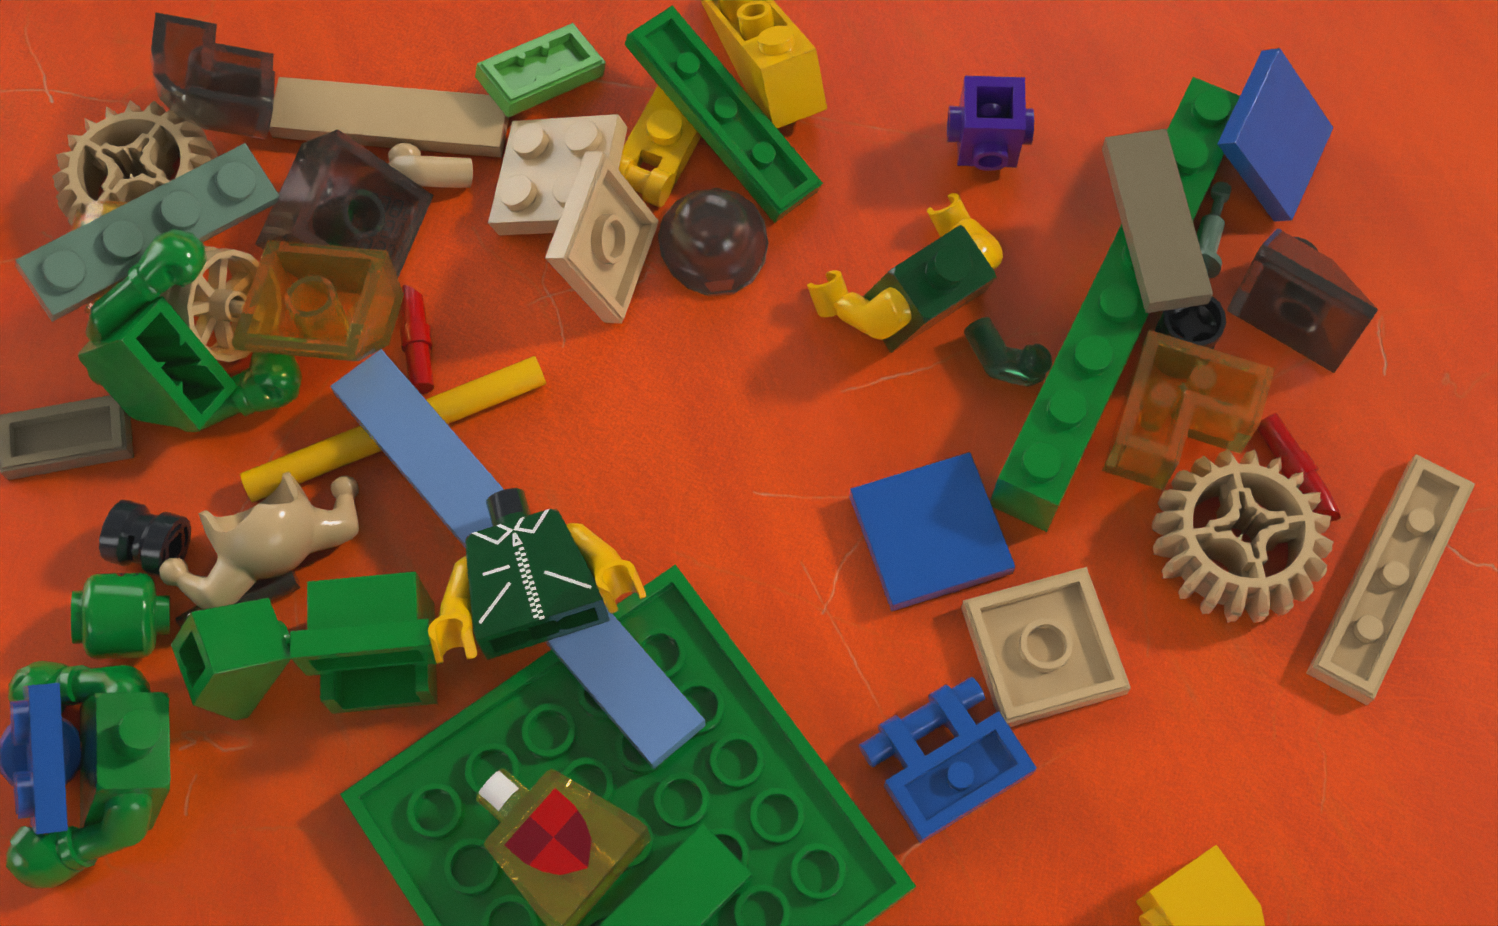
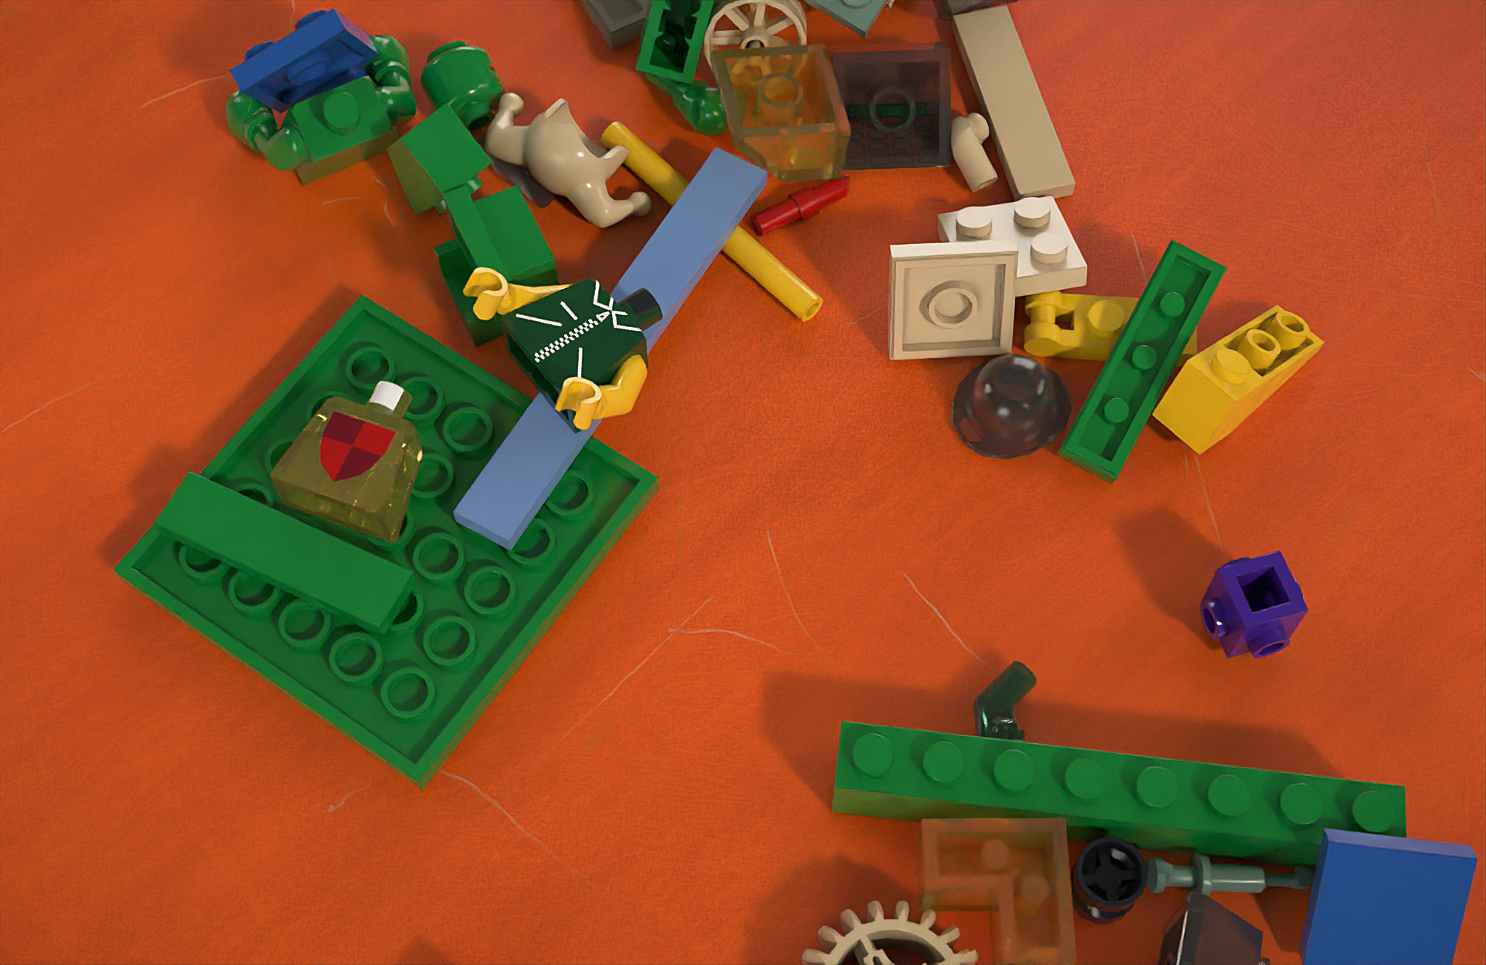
camera: 70 degrees right, 5 degrees down
(142, 537) = (539, 80): black wheel -> none
(540, 70) = (1117, 198): bright green plate -> none
(922, 286) = (1040, 601): torso -> none
(931, 531) = (784, 697): blue tile -> none
(958, 775) = (543, 794): blue plate -> none
(1045, 647) = (703, 842): tan tile -> none
(1156, 221) = (1192, 784): dark tan tile -> none

